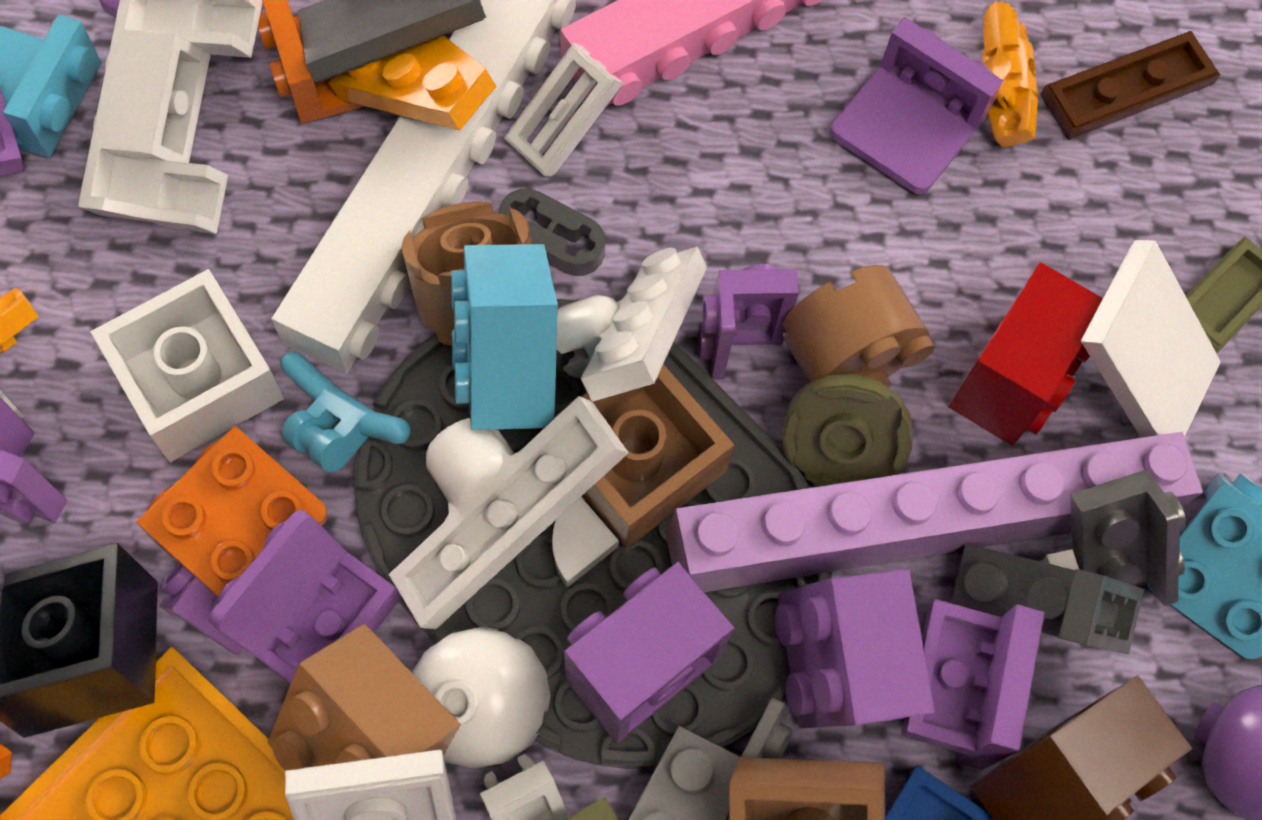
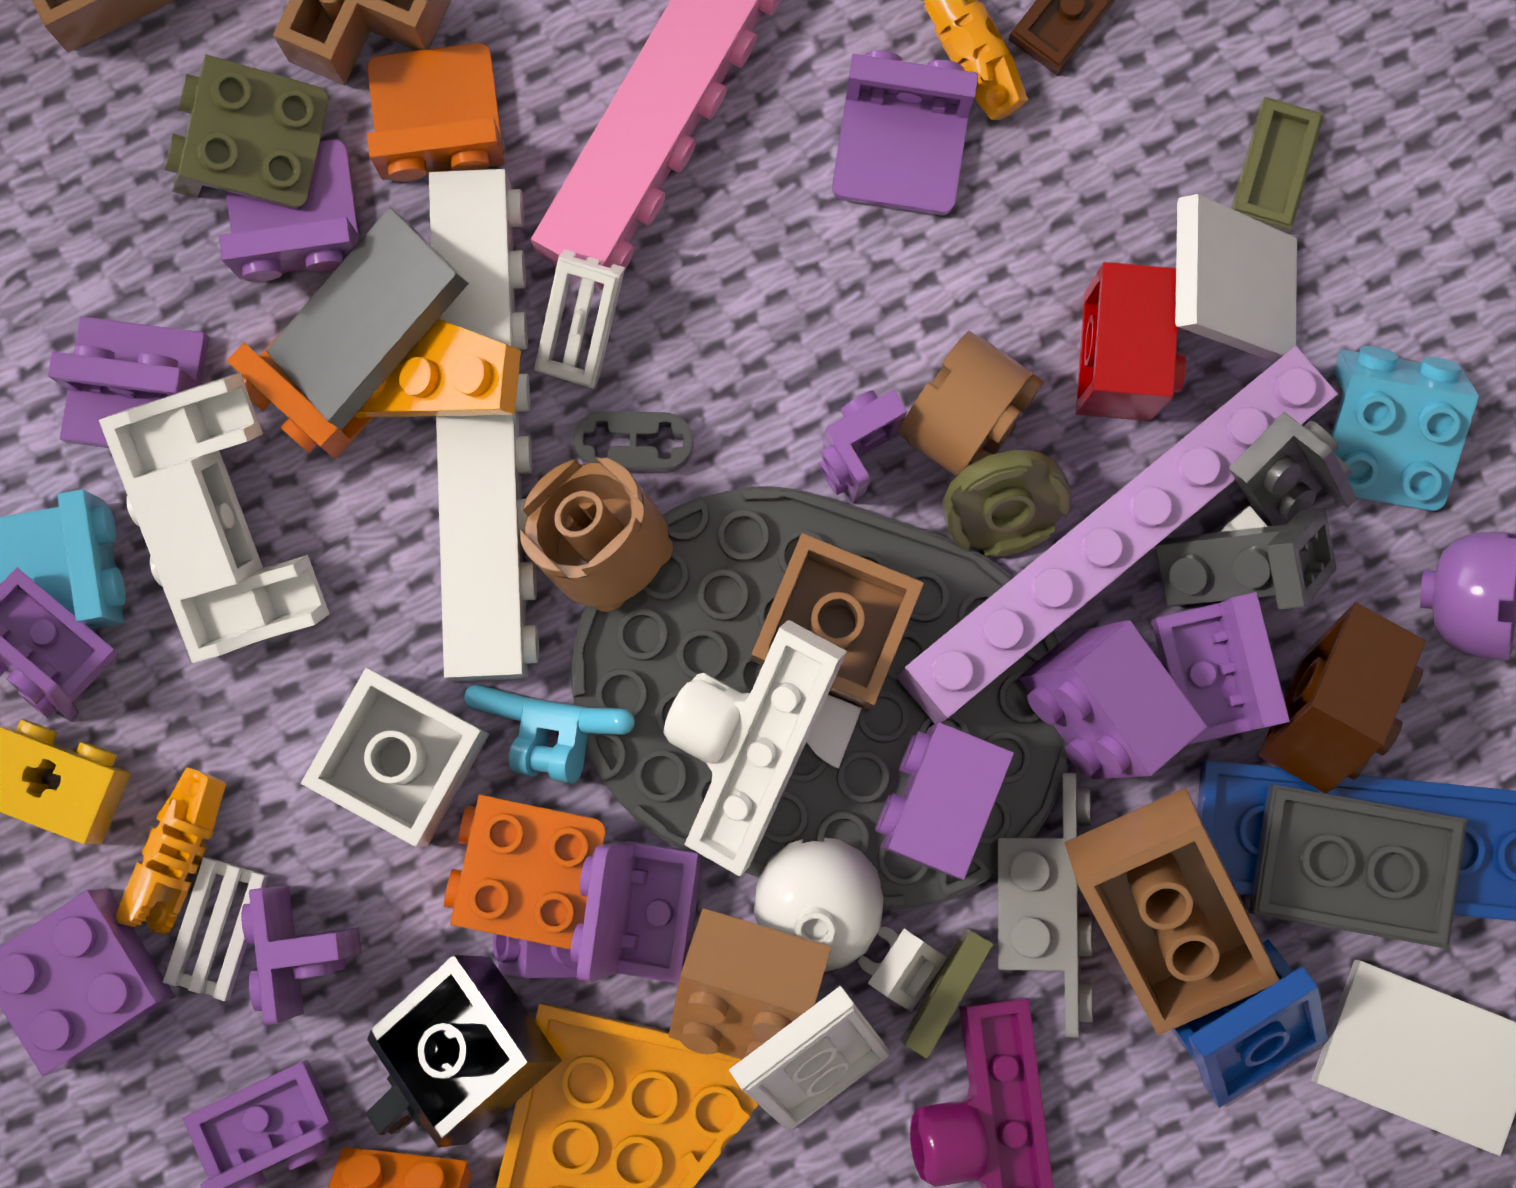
camera: 25 degrees left, 15 degrees up
(505, 336) = (678, 598): medium azure brick -> none
(628, 340) = (775, 517): white plate -> none

